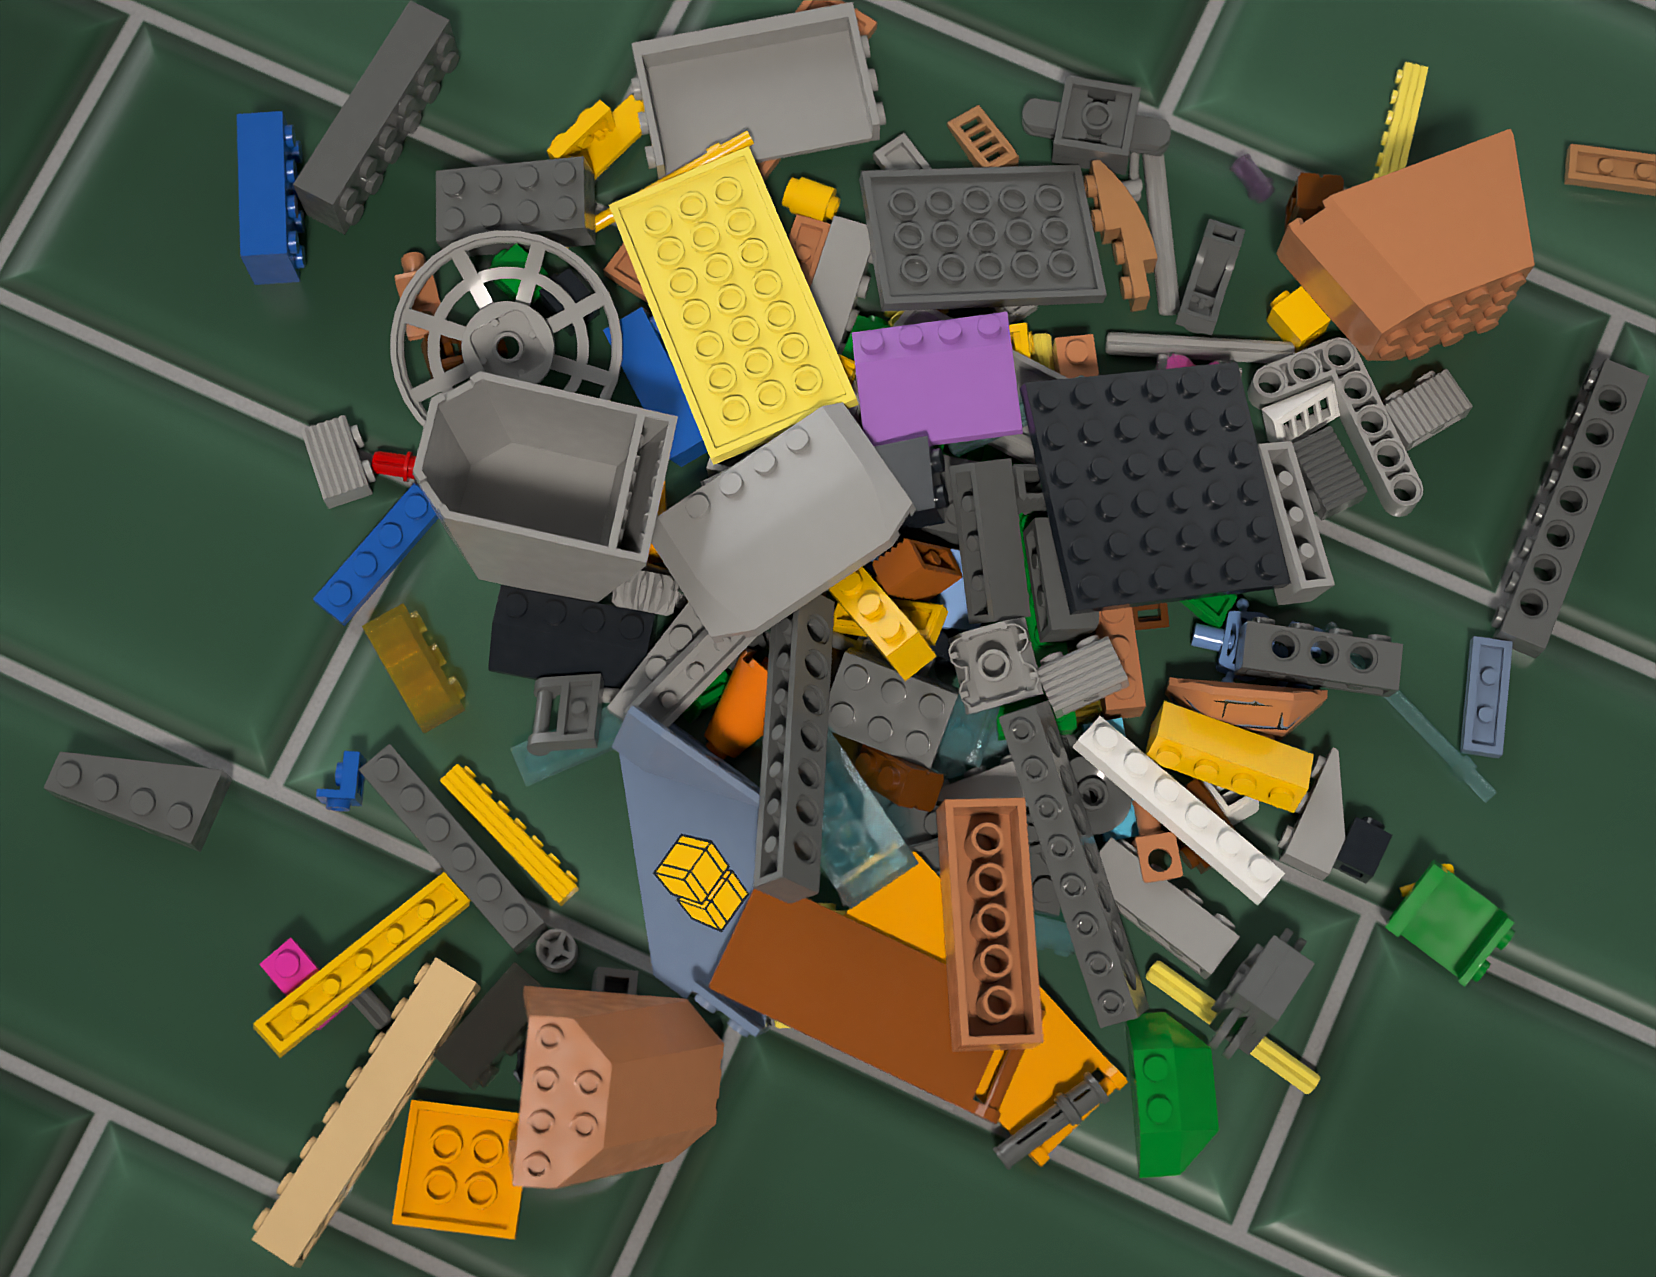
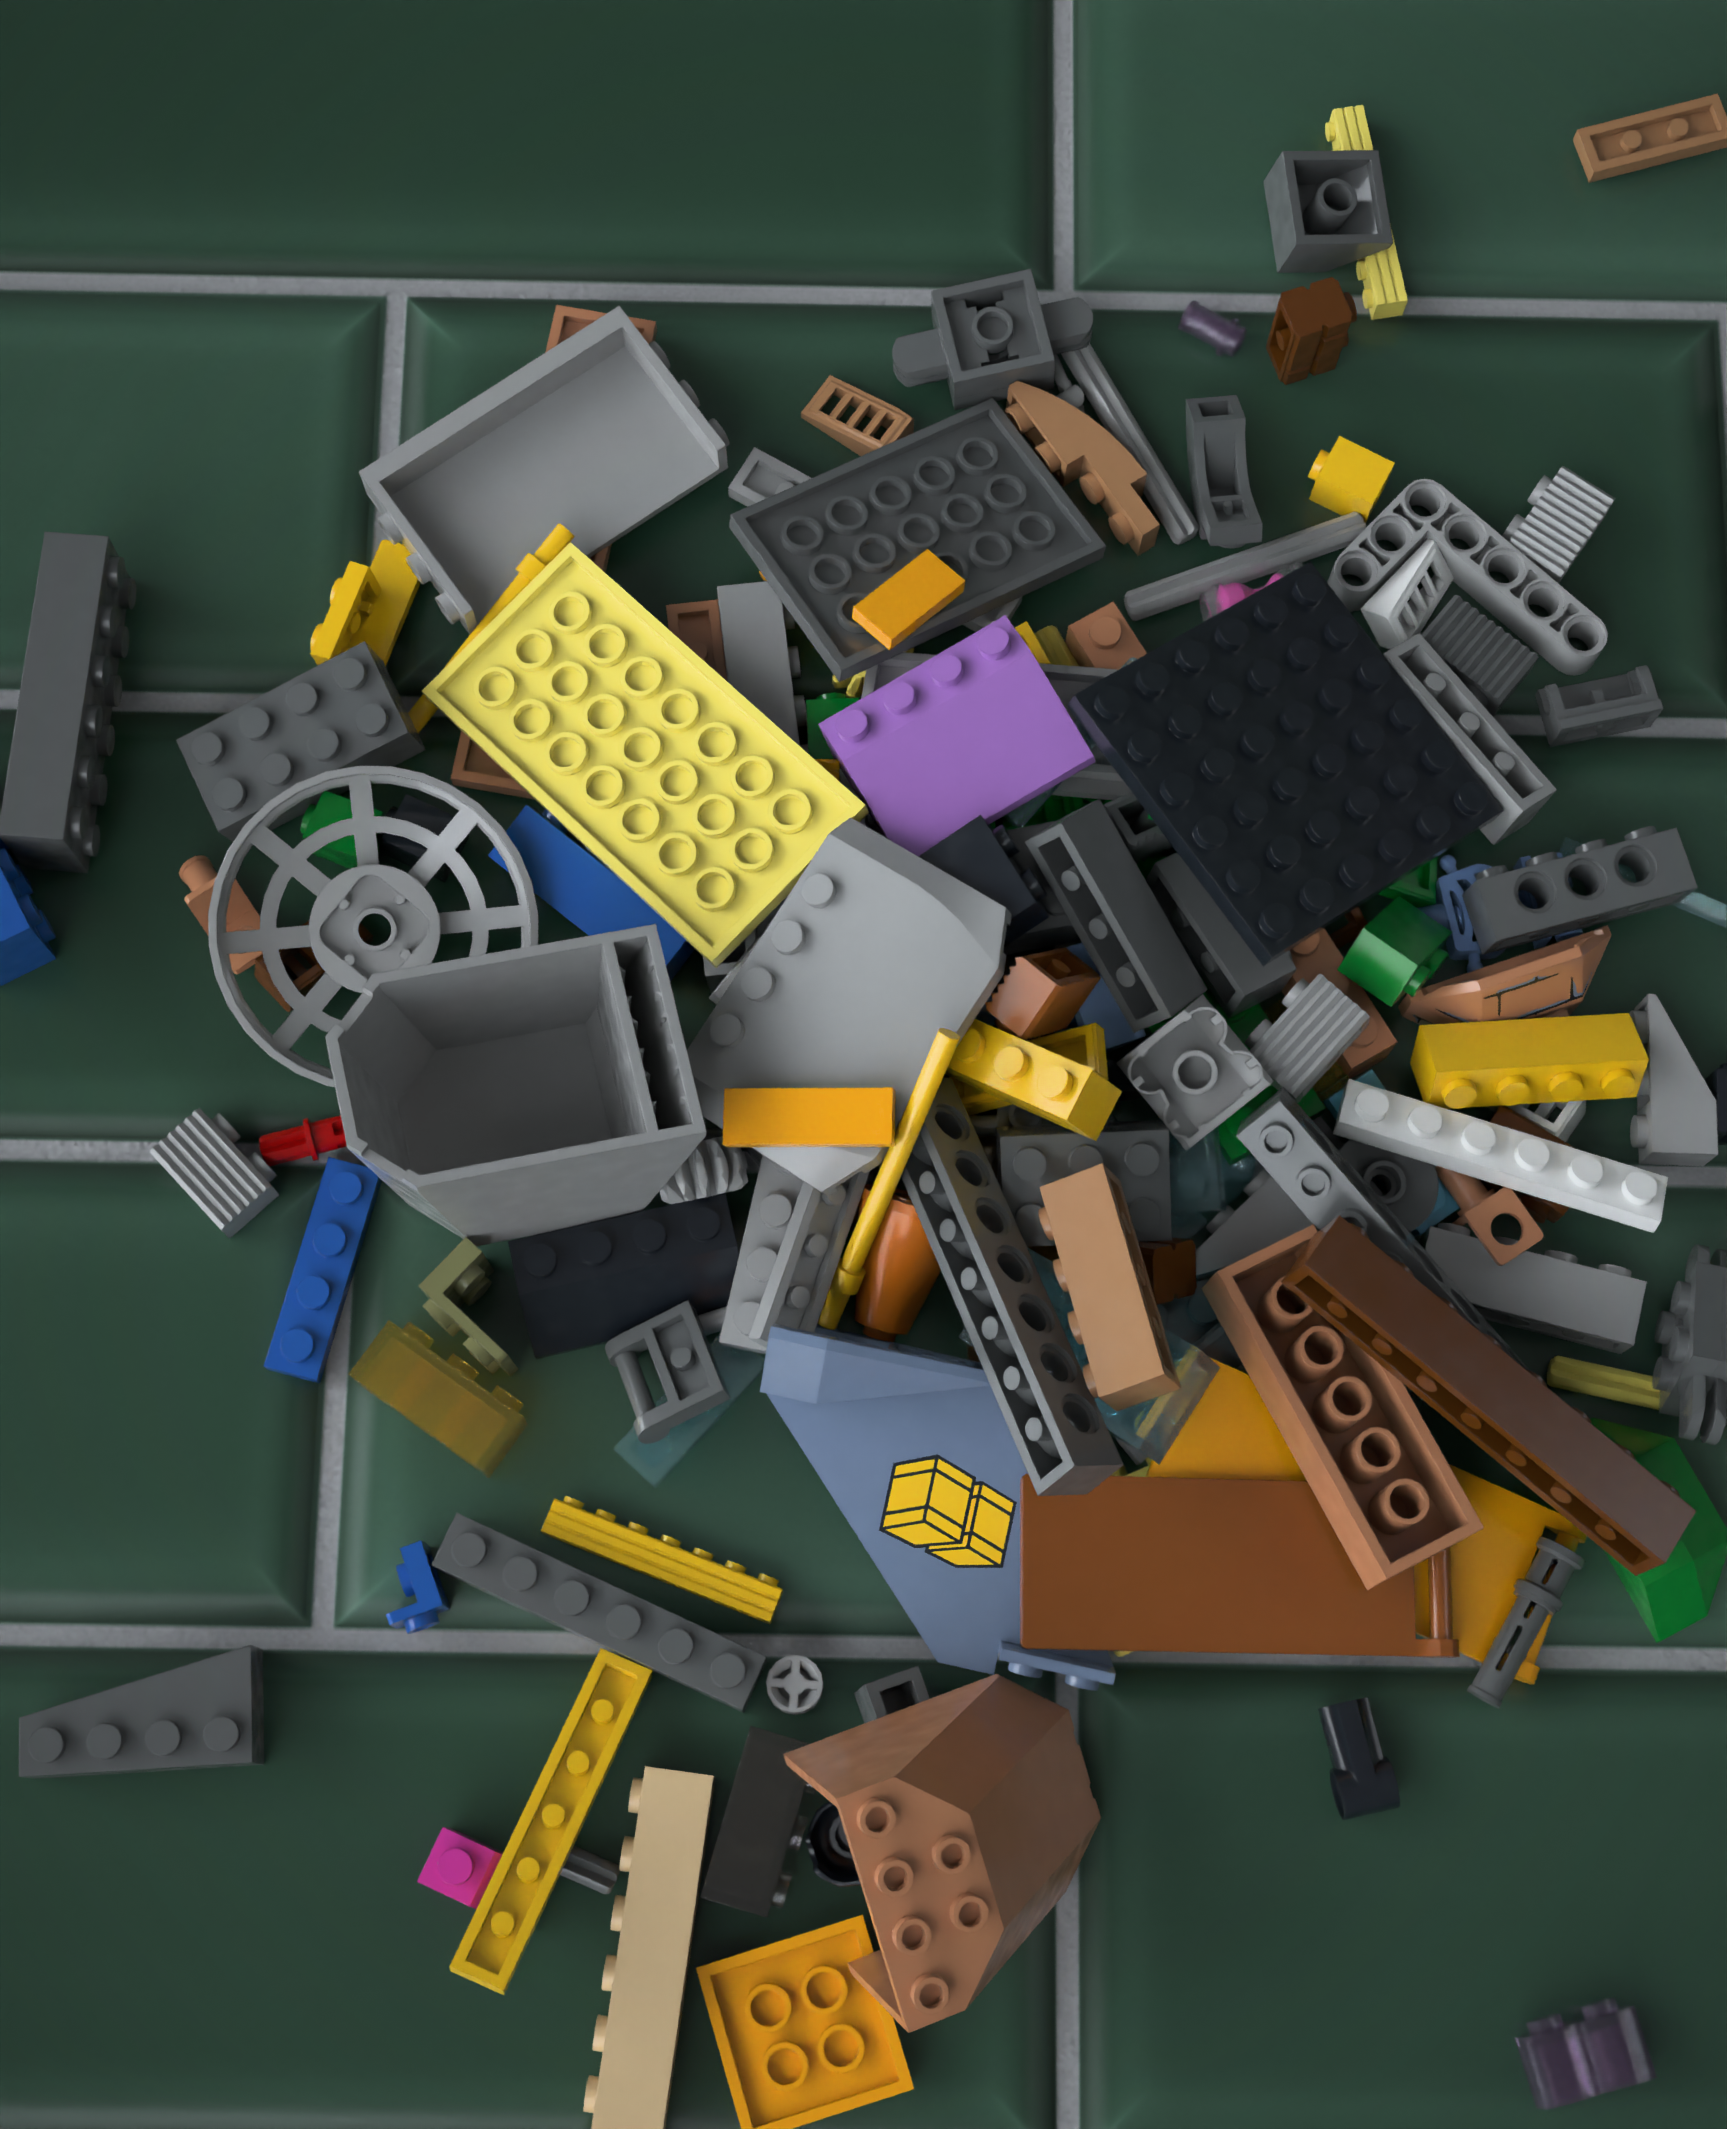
camera: 25 degrees left, 0 degrees up
(453, 597) = (459, 1280): none -> olive bracket
(711, 697) = (850, 1268): none -> yellow bar
(723, 584) = (809, 1117): none -> light orange tile
(811, 199) = (675, 579): yellow brick -> none
(864, 777) = (1108, 1289): none -> medium nougat brick
(898, 1171) = (1360, 1774): none -> black piece
(952, 275) = (908, 599): none -> light orange tile
(1087, 959) = (1489, 1396): none -> reddish brown brick
(1173, 646) = (1396, 952): none -> green brick
(1367, 128) = (1326, 209): none -> dark grey slope
(1396, 543) = (1599, 707): none -> dark grey hinge
(1418, 251) = (1475, 328): nougat windscreen -> none

